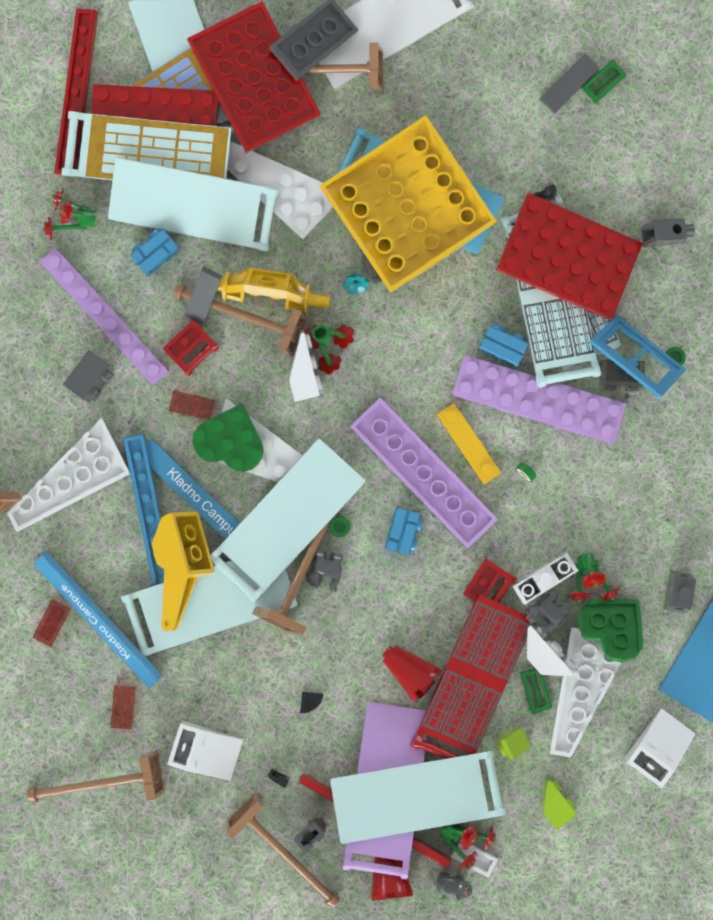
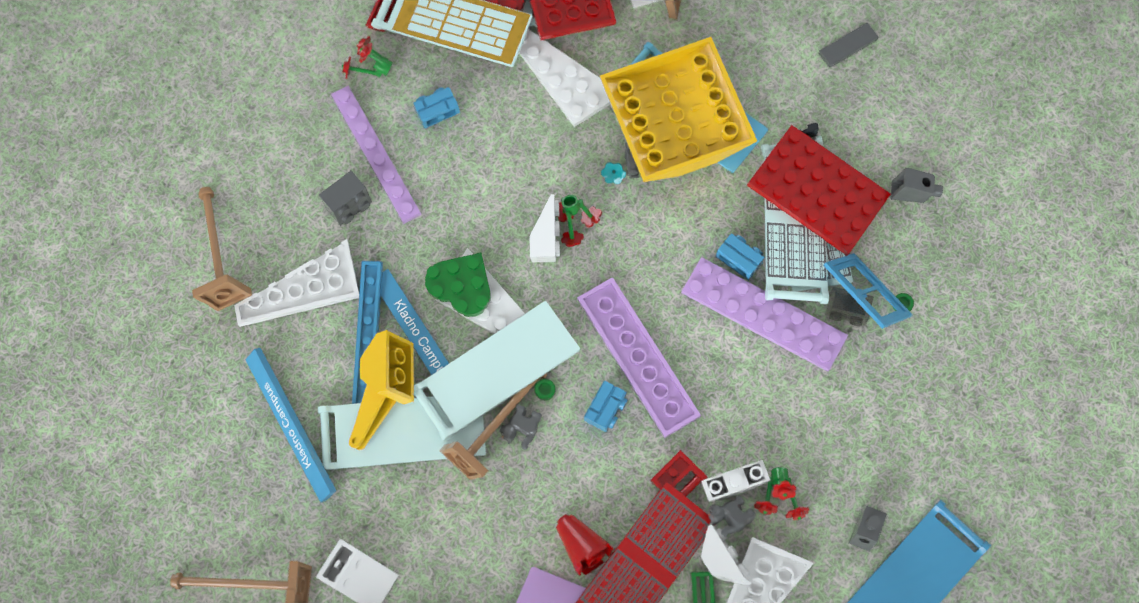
camera: 15 degrees right, 15 degrees down
(51, 623) = (245, 418): clear red tile -> none
(123, 707) = (290, 515): clear red tile -> none
(185, 343) = (444, 190): red plate -> none
(190, 203) = (479, 71): light aqua flag -> none
(191, 405) = (433, 247): clear red tile -> none
(203, 295) = (470, 149): tile -> none
(271, 284) = (539, 156): yellow plate -> none
(289, 332) = (539, 197): medium nougat tile -> none
(310, 701) = (474, 552): black tile -> none
(468, 443) = (687, 340): yellow plate -> none
(526, 471) = (738, 377): green tile -> none
(590, 93) = (895, 42): green tile -> none
(614, 625) = (796, 545): green plate -> none

